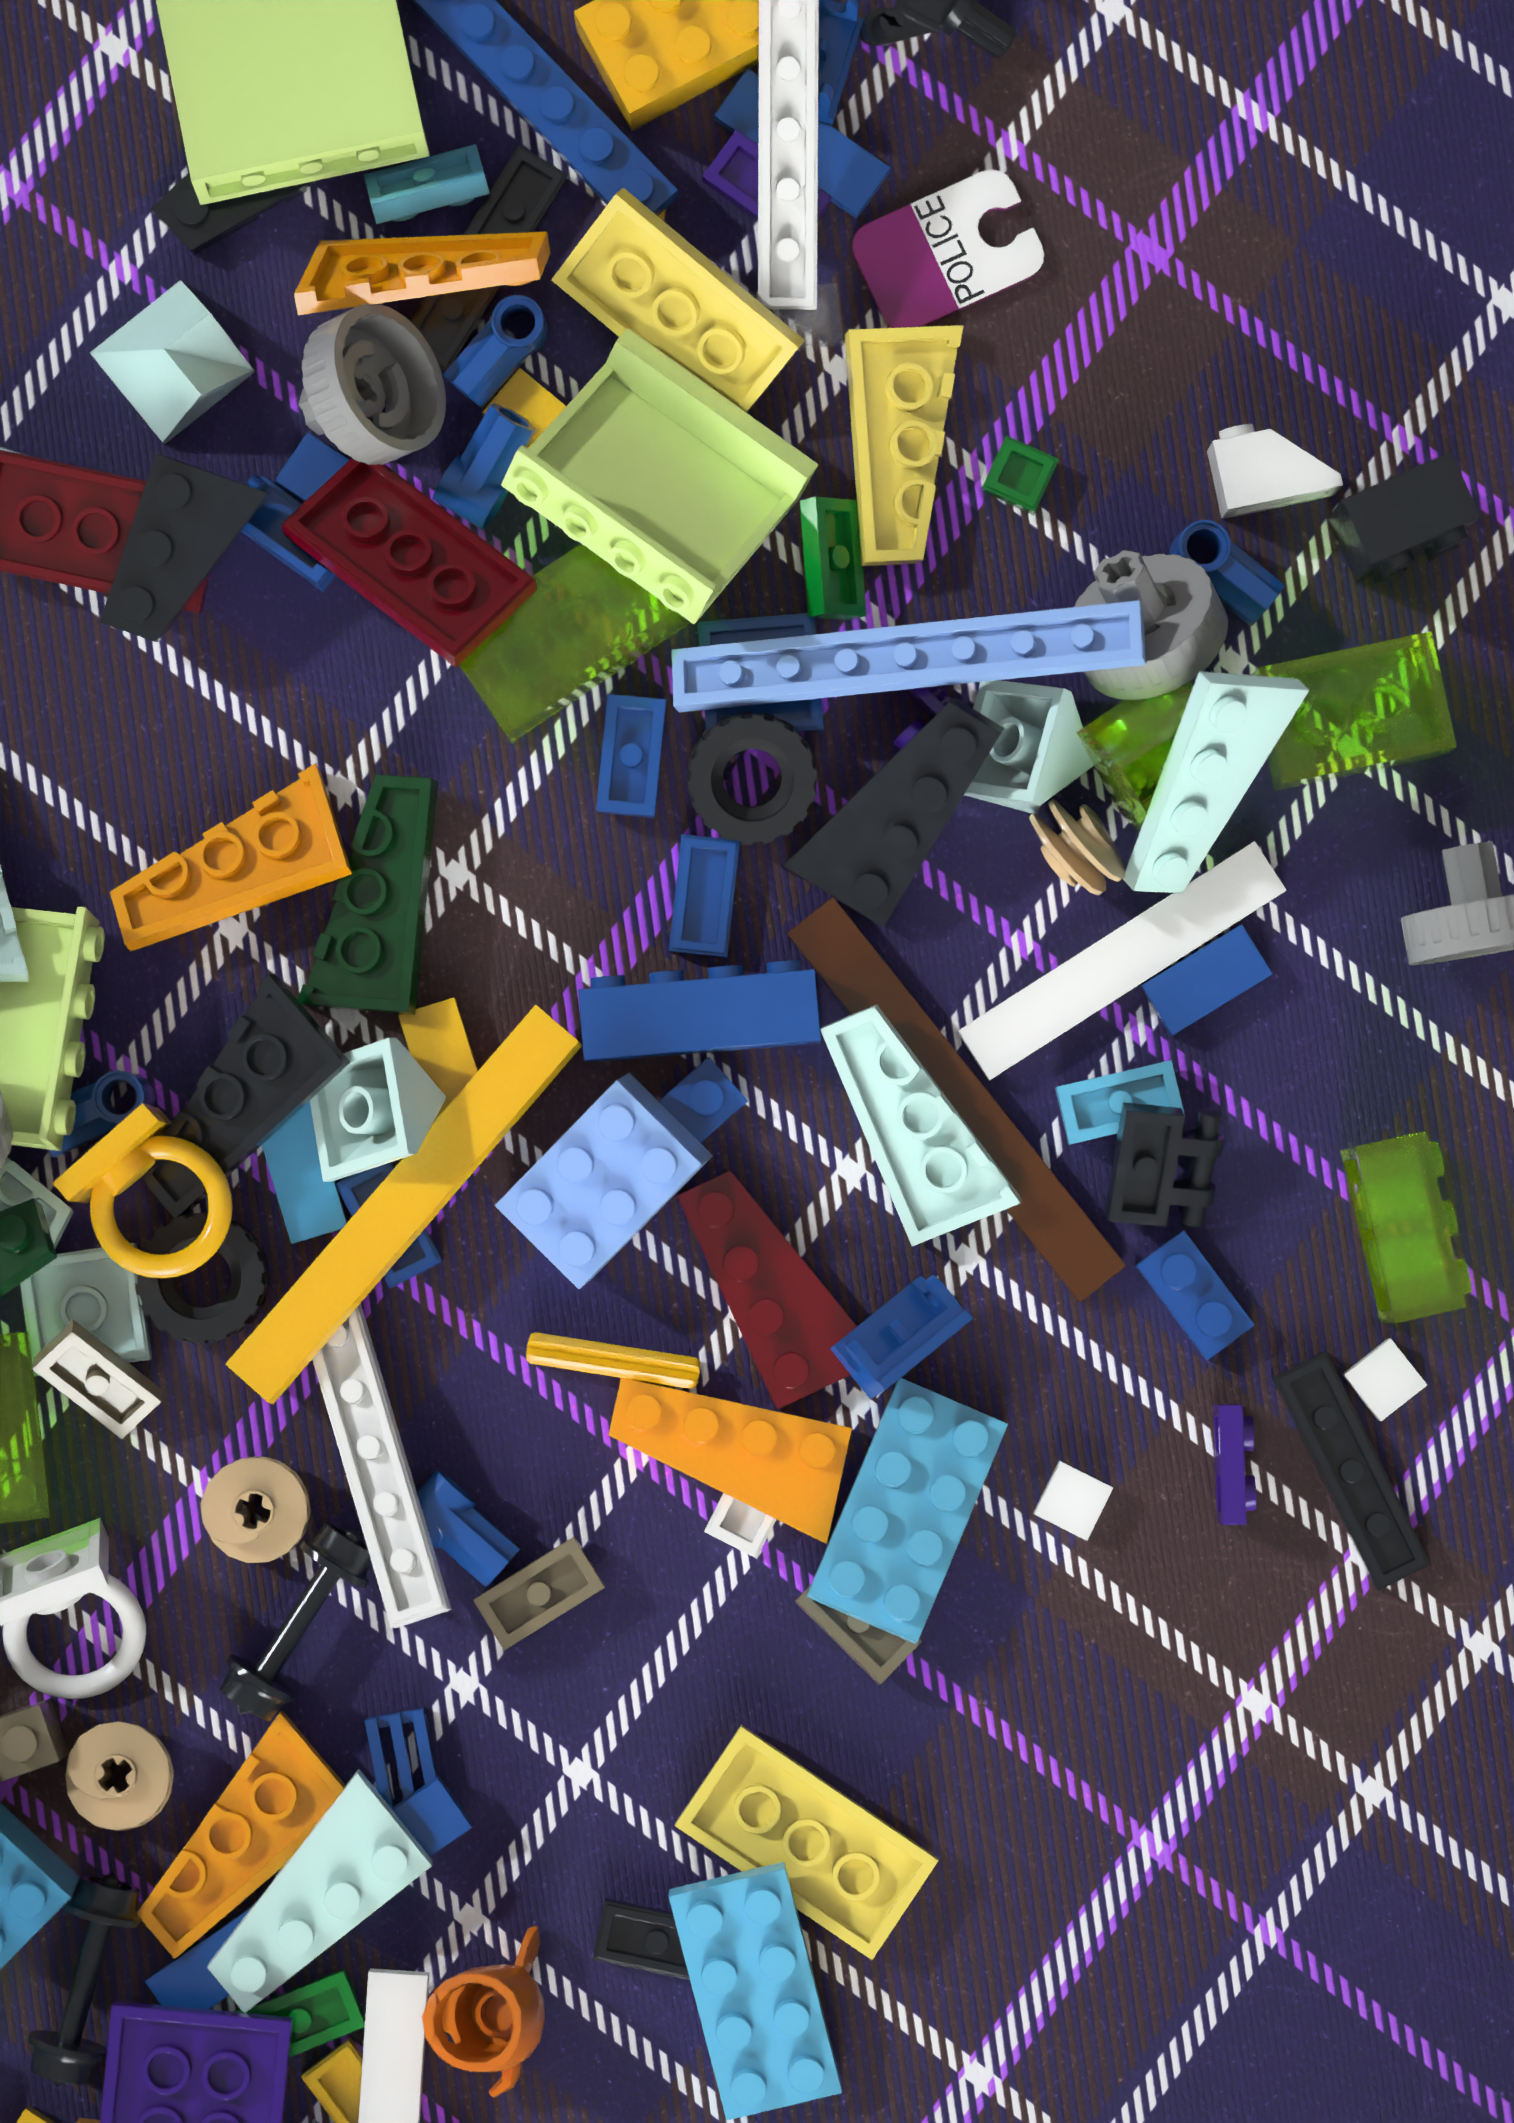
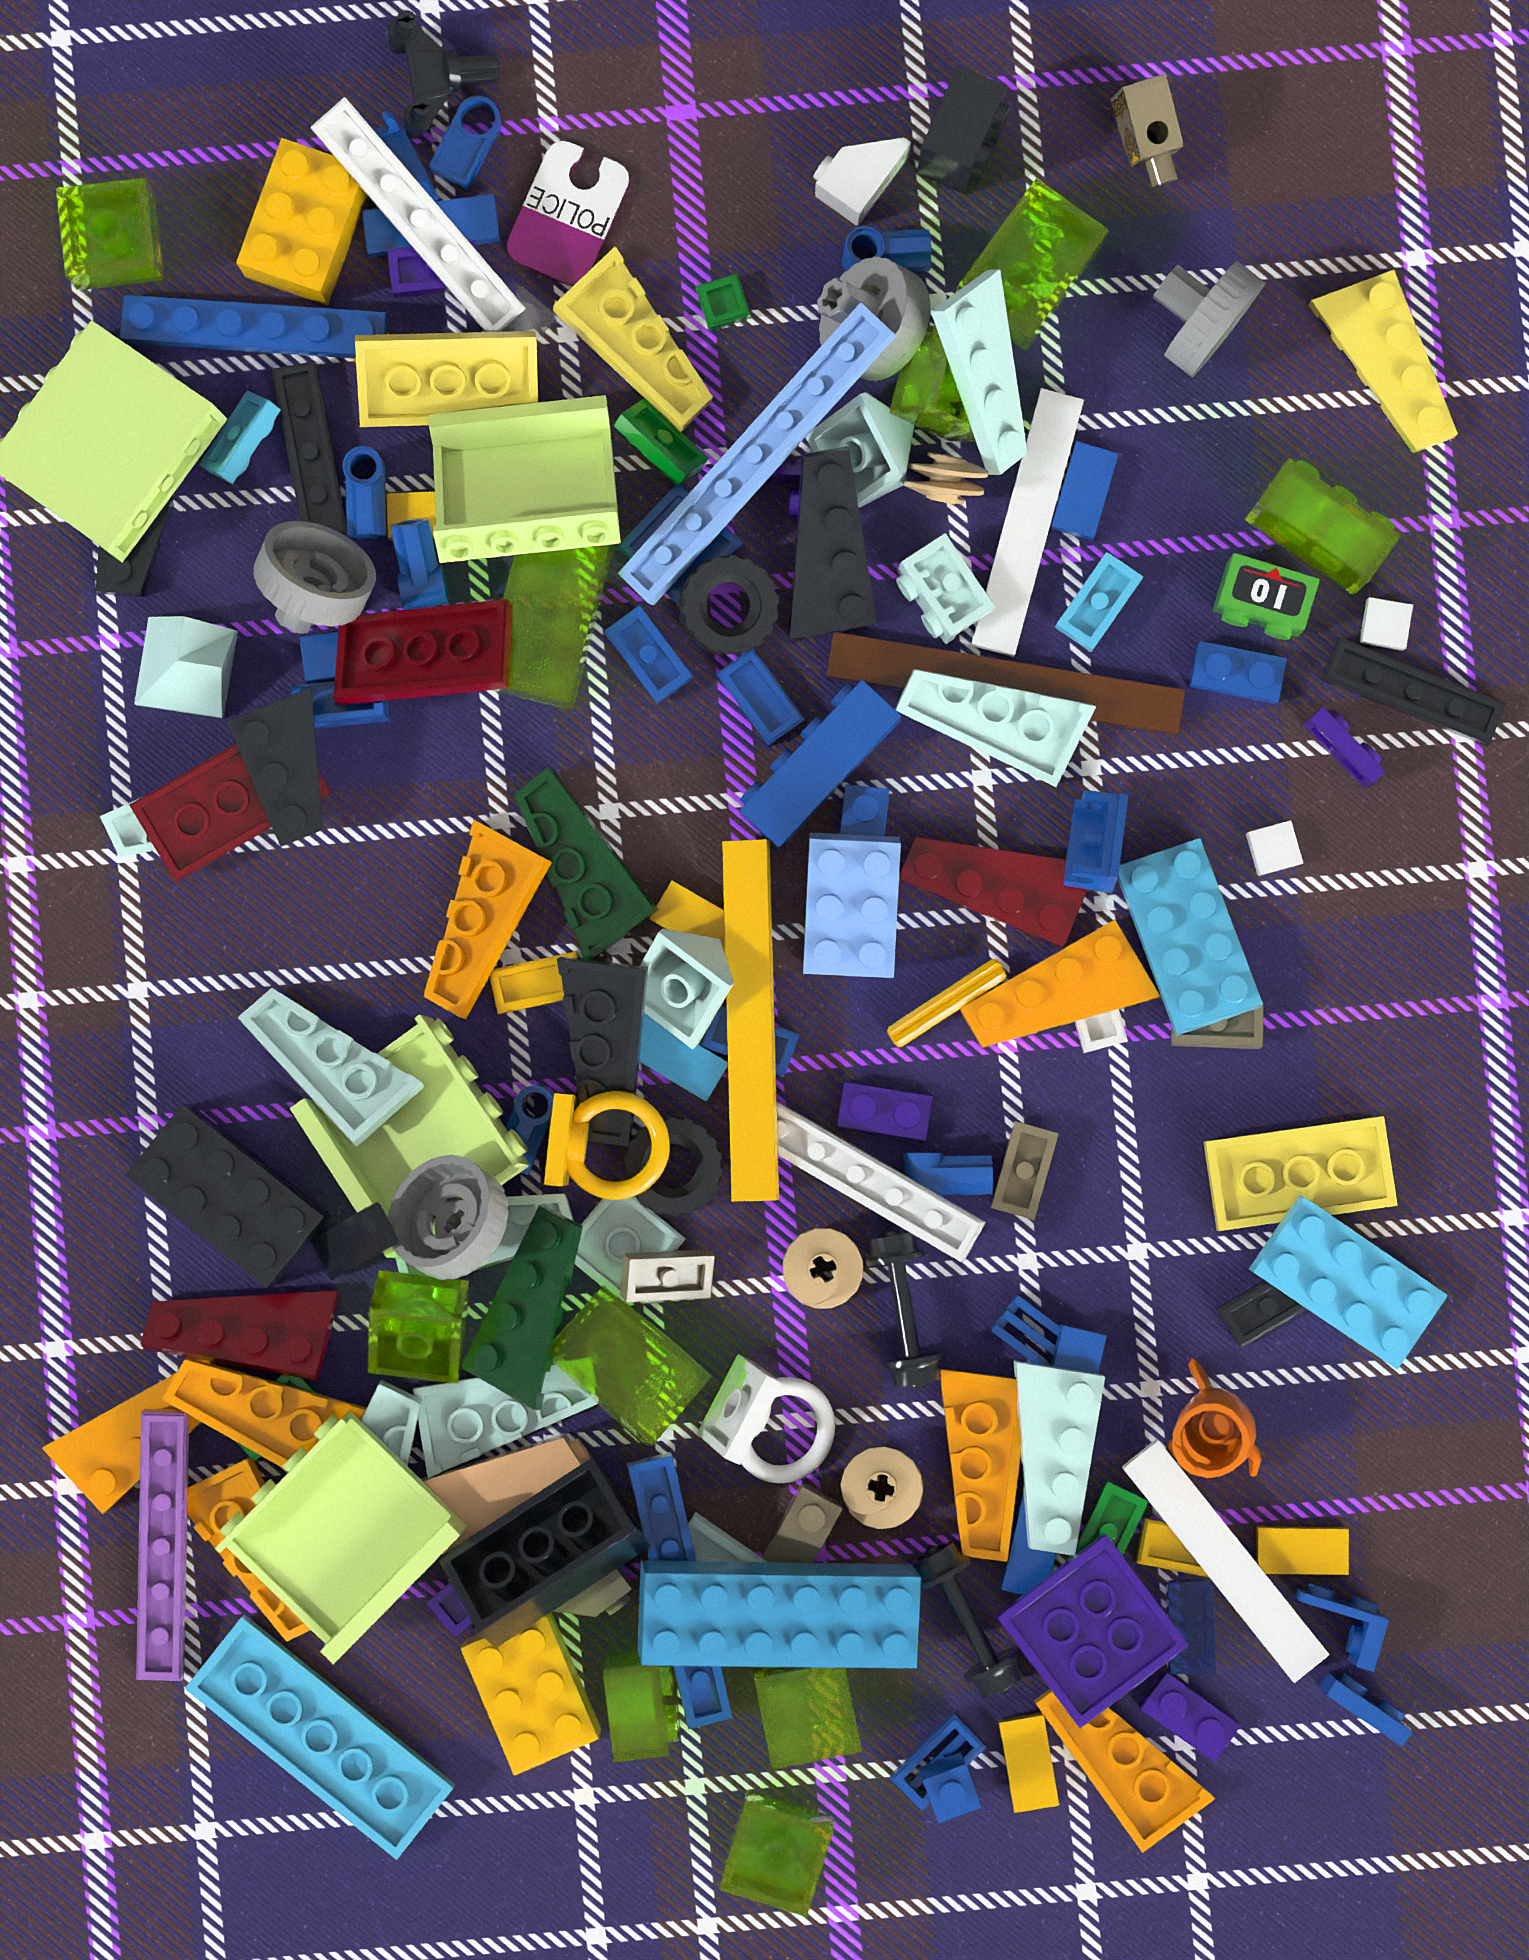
camera: 40 degrees left, 0 degrees up
(222, 971) = (528, 984): none -> yellow tile
(414, 267) = (275, 489): light orange wing -> none
(457, 1411) = (884, 1111): none -> dark purple plate
(896, 99) = (462, 152): none -> blue piece
(977, 953) = (943, 589): none -> light aqua bracket
(1146, 1165) = (1146, 622): black plate -> none
(1288, 1246) = (1265, 596): none -> brick

